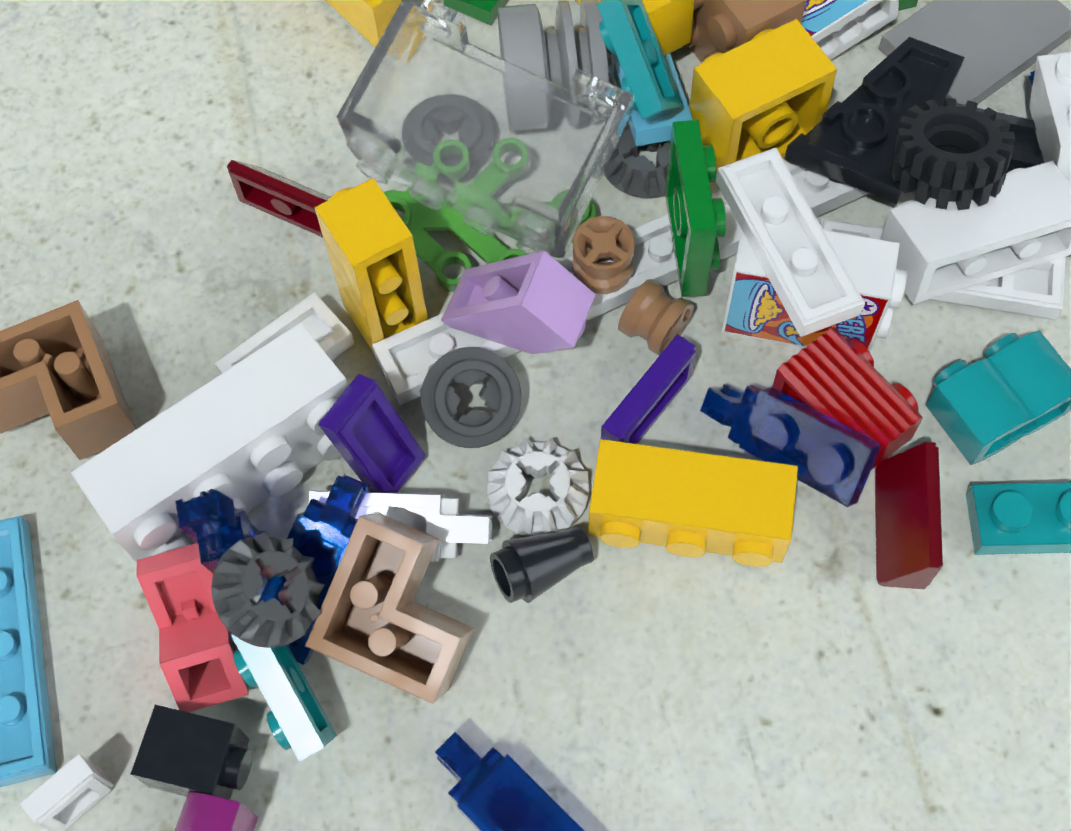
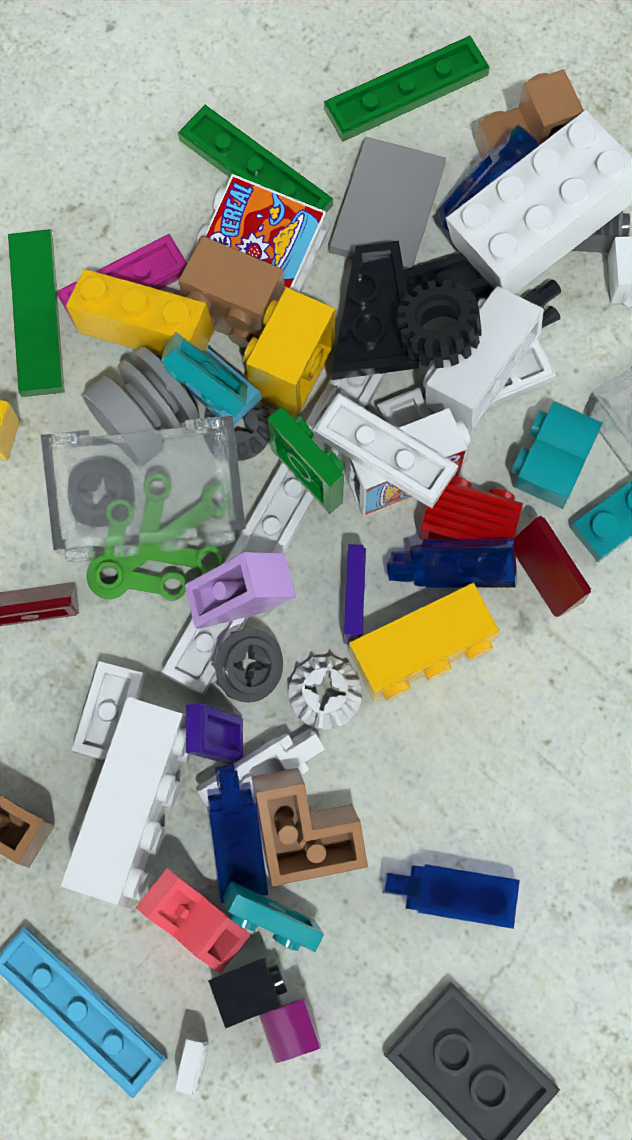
camera: 35 degrees left, 10 degrees up
(215, 526) = (179, 857): clear blue hinge -> none
(238, 579) = (218, 881): dark grey gear -> none
(372, 261) = (137, 626): yellow brick -> none
(538, 562) = (359, 741): black cone -> none
(599, 239) = (267, 510): medium nougat wheel -> none
(655, 316) = (321, 537): medium nougat wheel -> none

